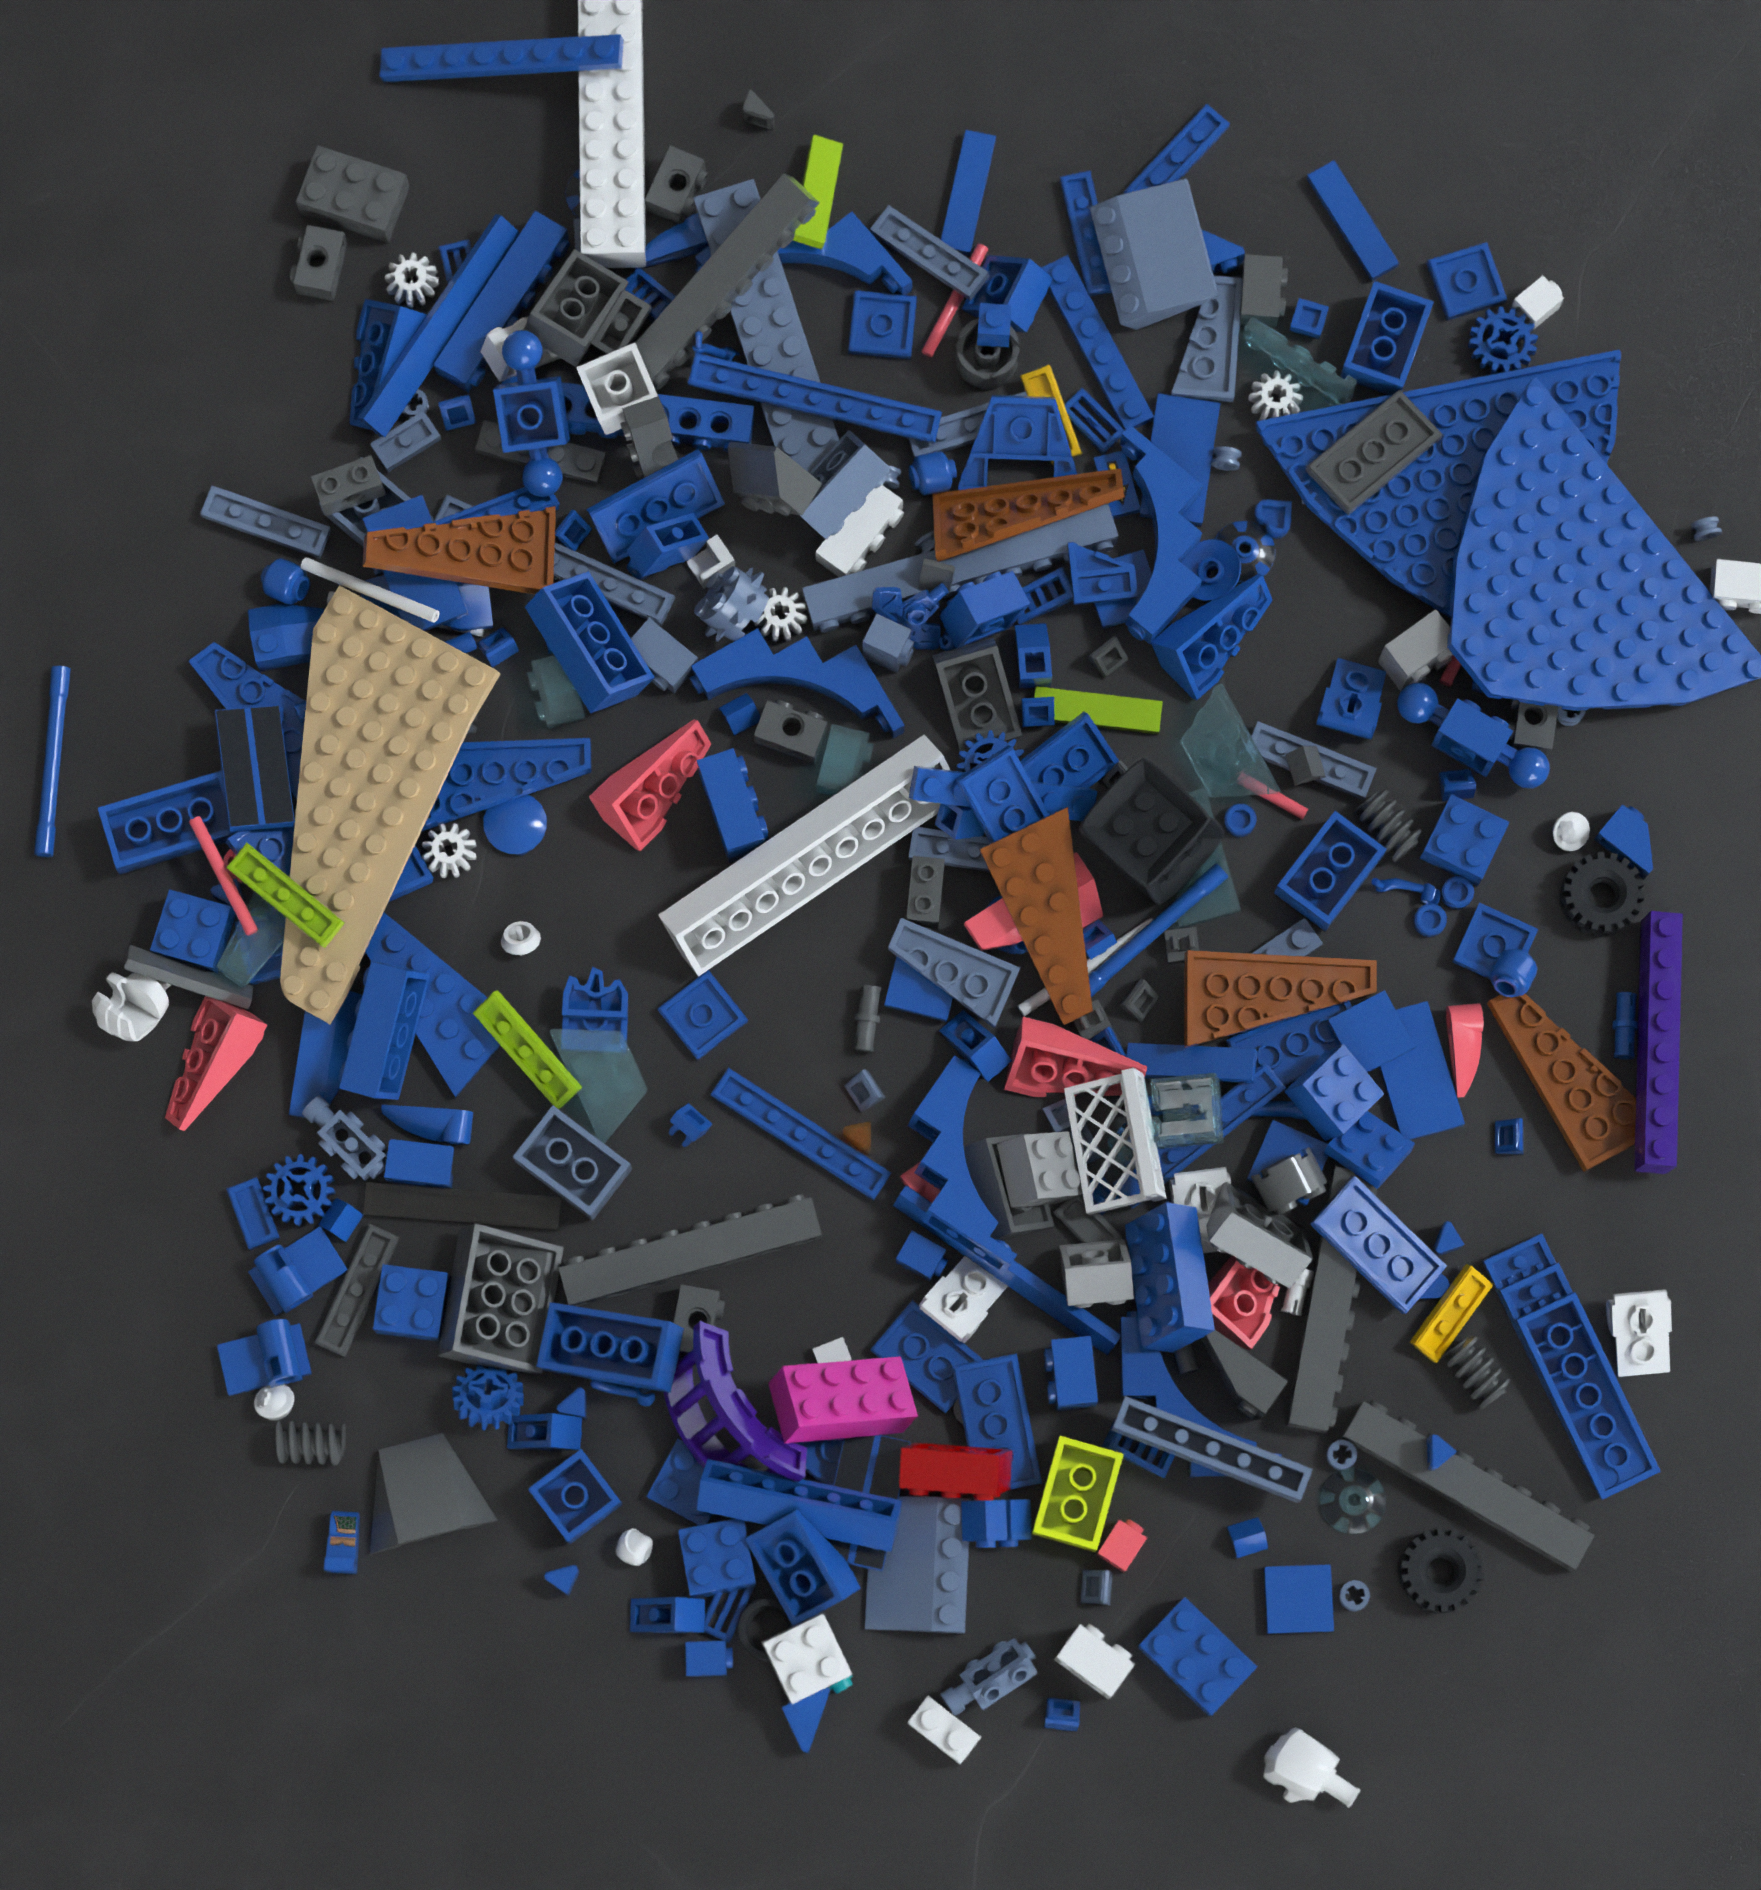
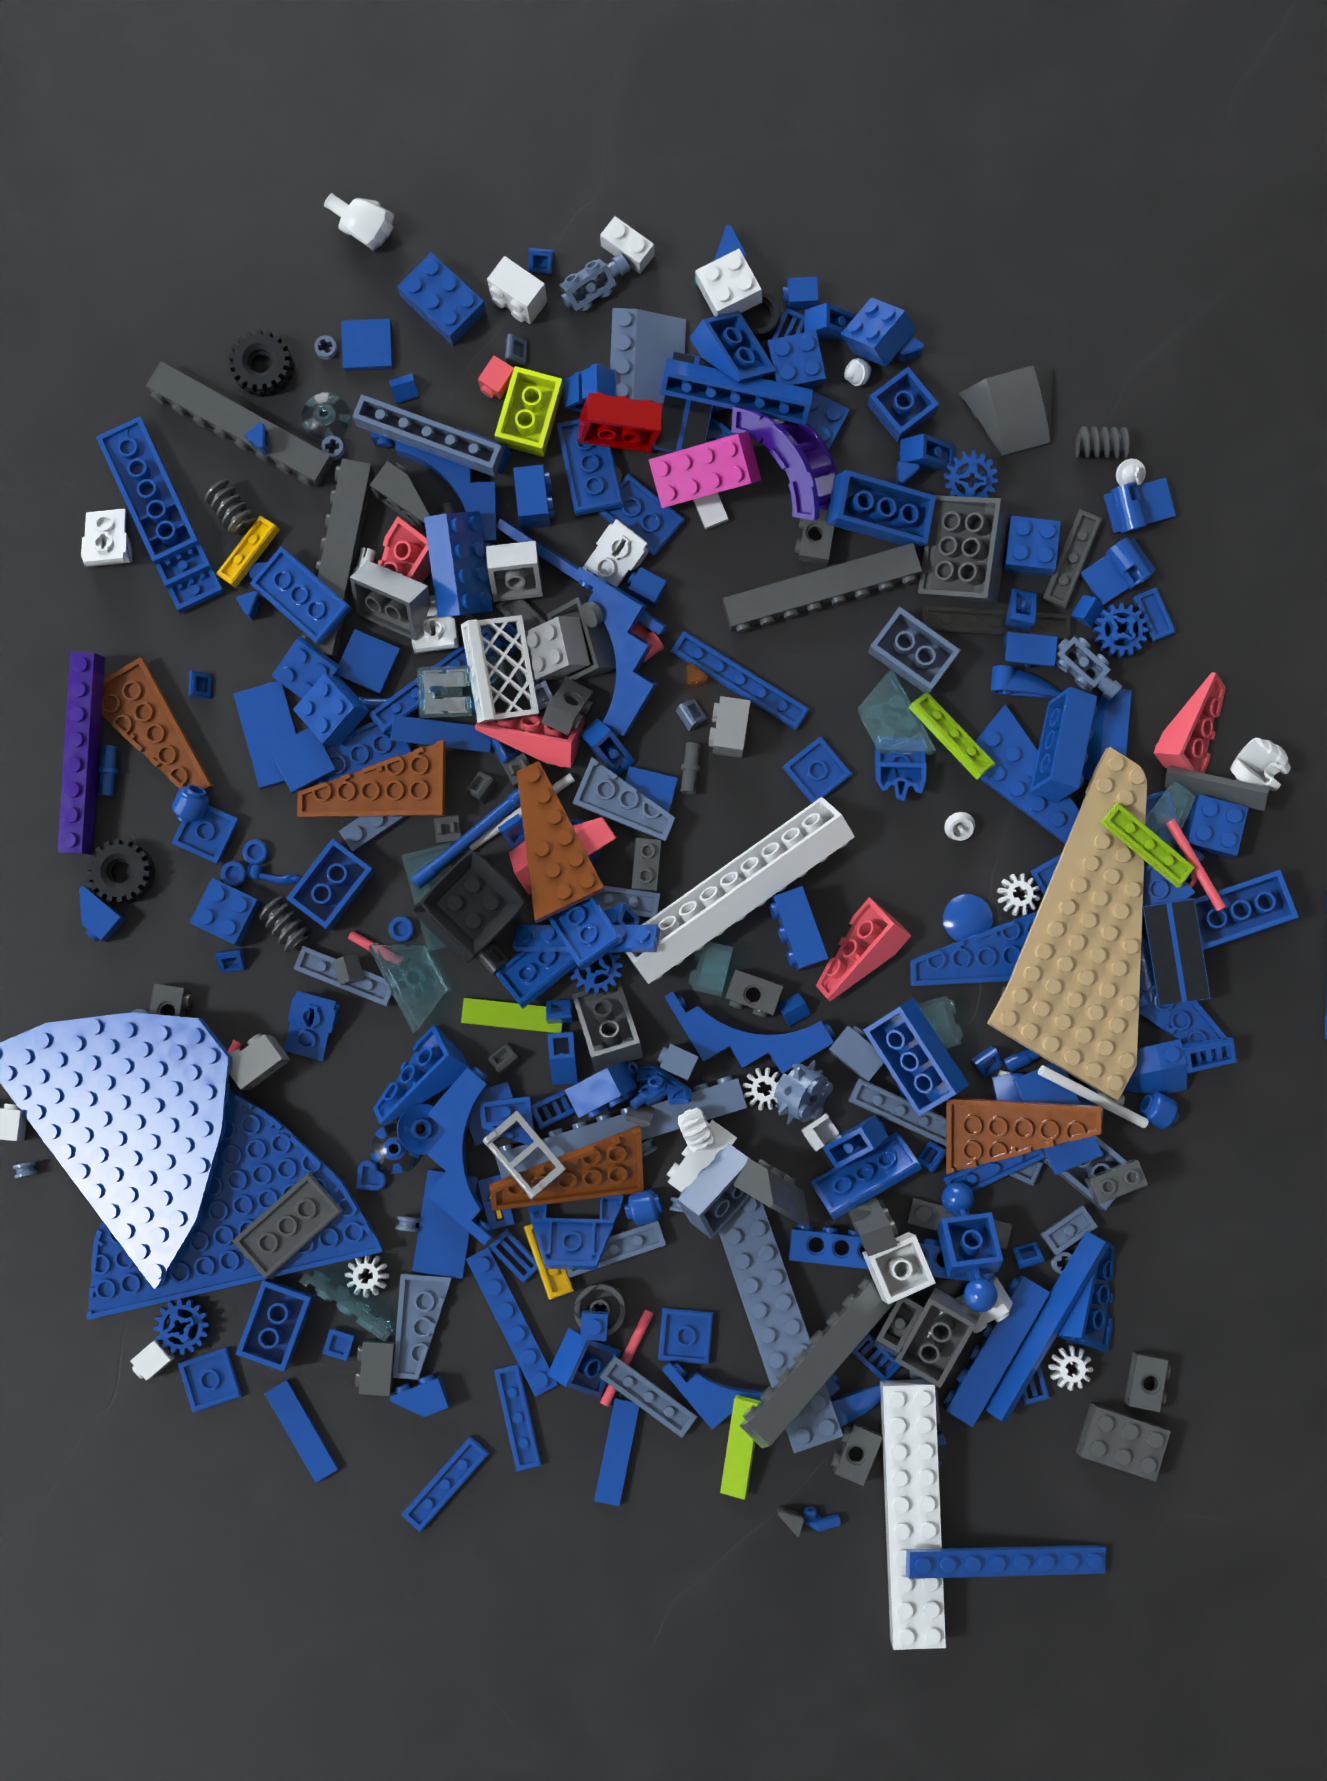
camera: 175 degrees left, 5 degrees up
(232, 654) = (1206, 1046): none -> blue slope
(265, 522) = (1177, 1161): sand blue plate -> none
(343, 1543) = (1073, 371): blue leg -> none
(428, 1216) = (1021, 610): none -> blue slope
(605, 1595) = (878, 331): none -> blue brick
(690, 1123) = (824, 685): blue tile -> none
(723, 108) = (820, 1523): none -> blue arm
(725, 353) = (812, 1306): blue piece -> none
(814, 398) = (740, 1266): blue tile -> none
(814, 1063) = (731, 725): none -> light grey brick
(866, 554) = (696, 1130): none -> white gear
(994, 1204) = (591, 614): none -> dark grey tile
(1037, 1081) = (567, 707): none -> dark grey brick
(1063, 542) = (510, 1166): none -> light grey window
(1154, 253) = (463, 1395): sand blue slope -> none
(1289, 1181) = (366, 638): dark grey brick -> none
(1464, 1040) = (231, 758): coral piece -> none
(1472, 736) = (217, 992): blue brick -> none
(1571, 831) = (143, 921): white hat -> none

